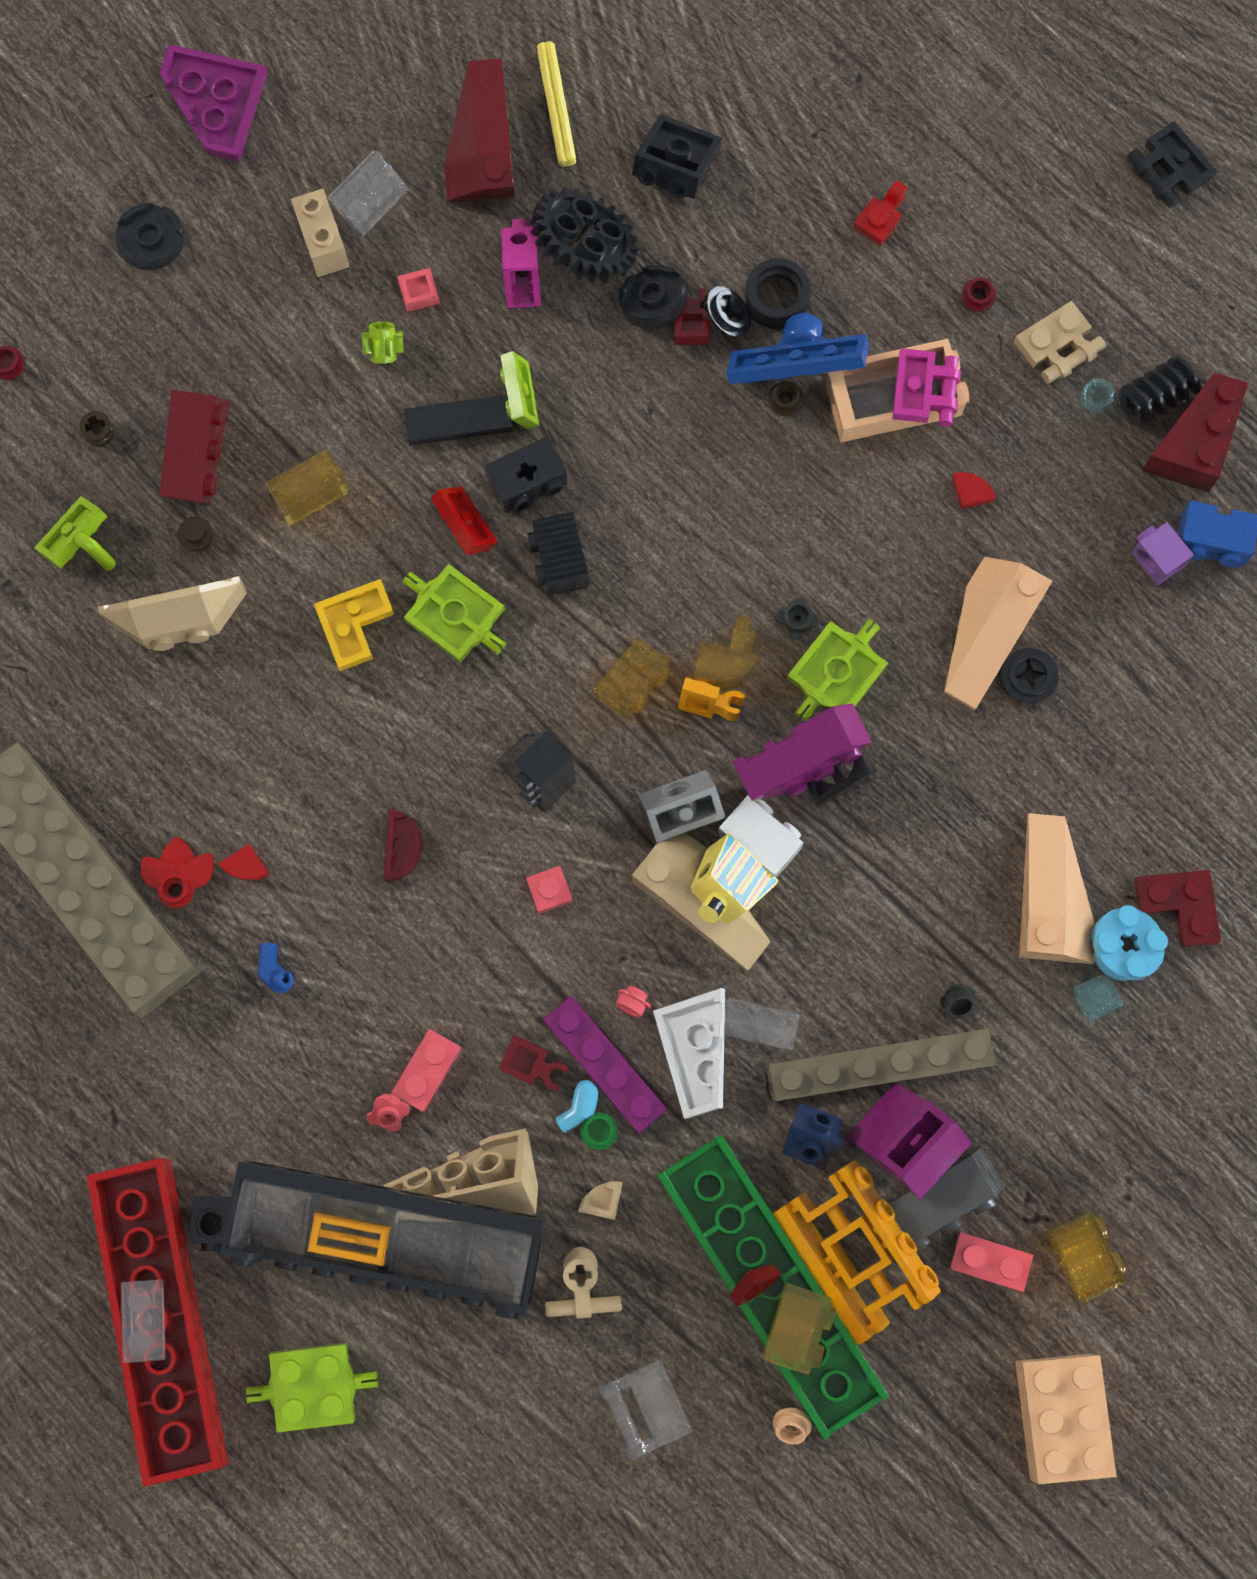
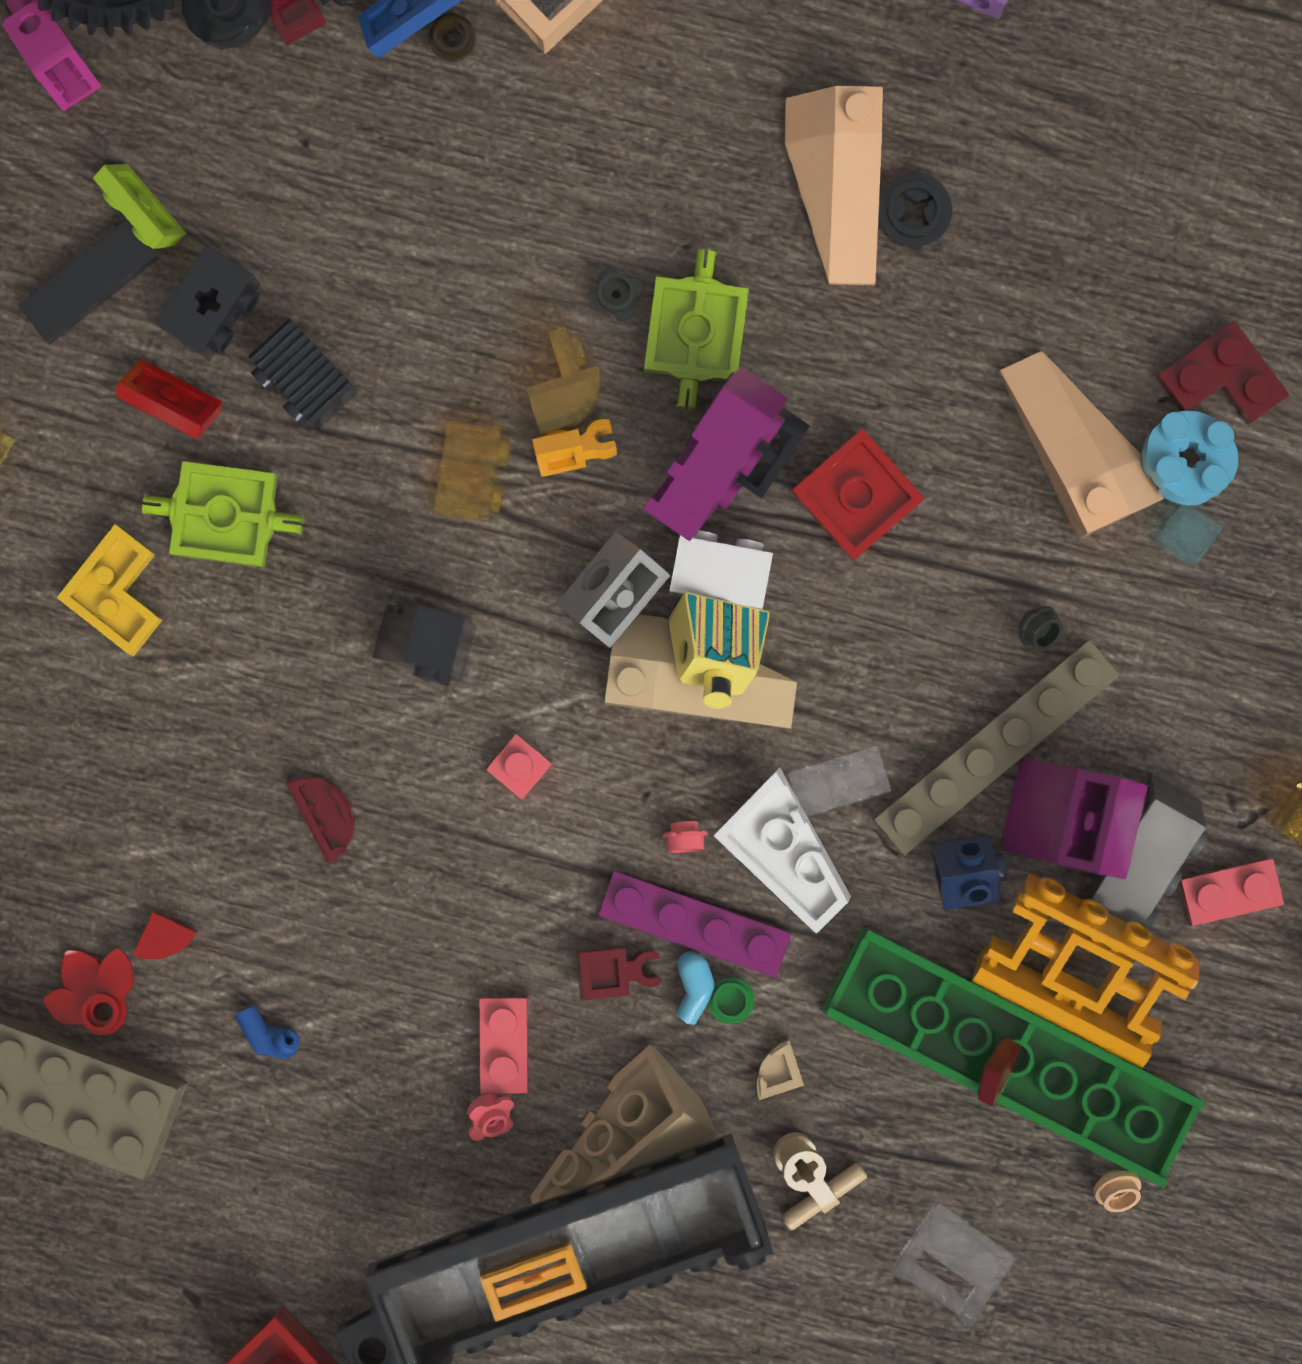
camera: 30 degrees left, 10 degrees up
(798, 1329) = (1073, 1092): clear yellow brick -> none
(883, 840) = (857, 495): none -> red plate
(972, 490) = (727, 26): red tile -> none

